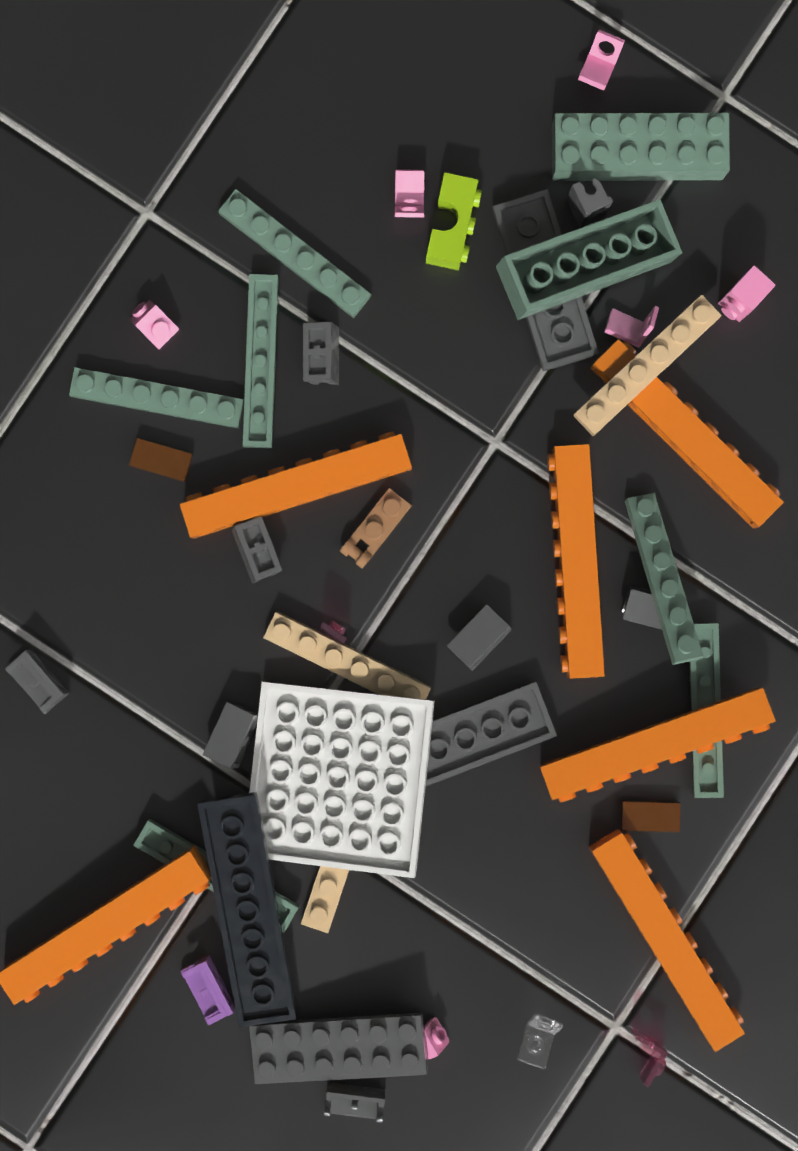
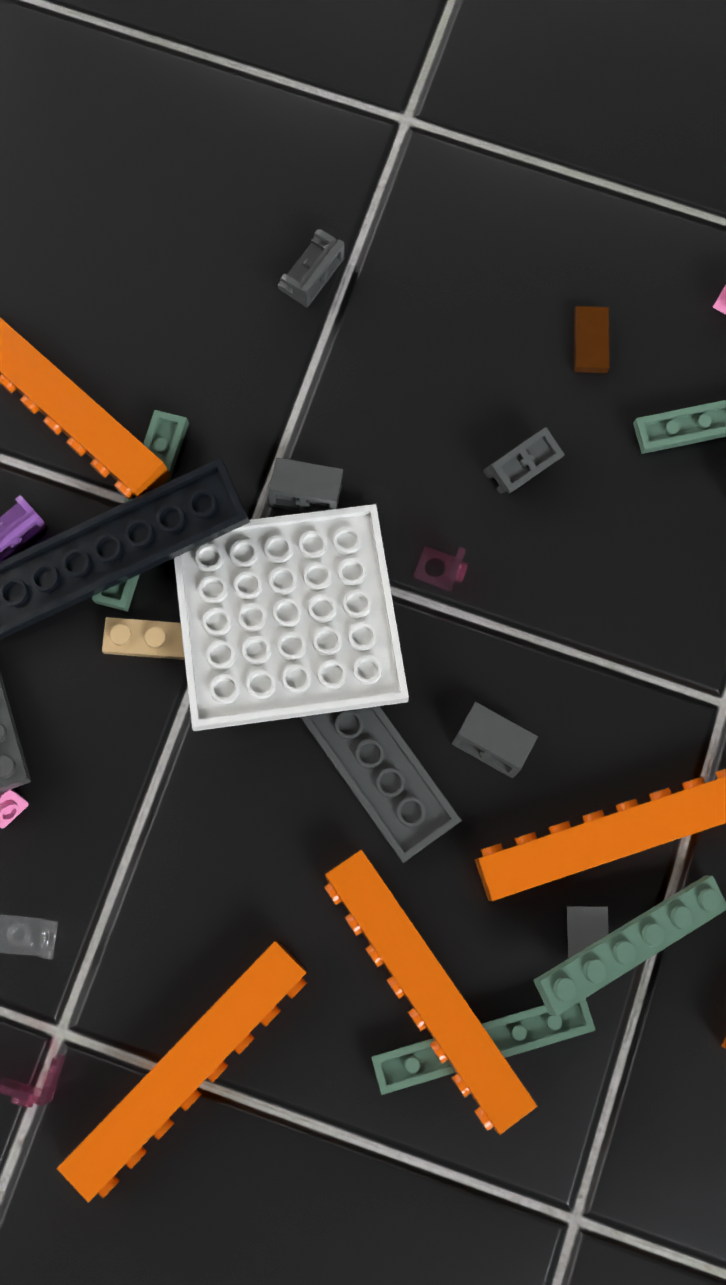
camera: 75 degrees right, 10 degrees down
(156, 398) = (658, 319): sand green plate -> none
(296, 485) = (610, 490): orange brick -> none
(343, 659) = (426, 588): tan plate -> none
(376, 527) = (587, 590): medium nougat plate -> none
(650, 816) = (333, 1008): reddish brown tile -> none

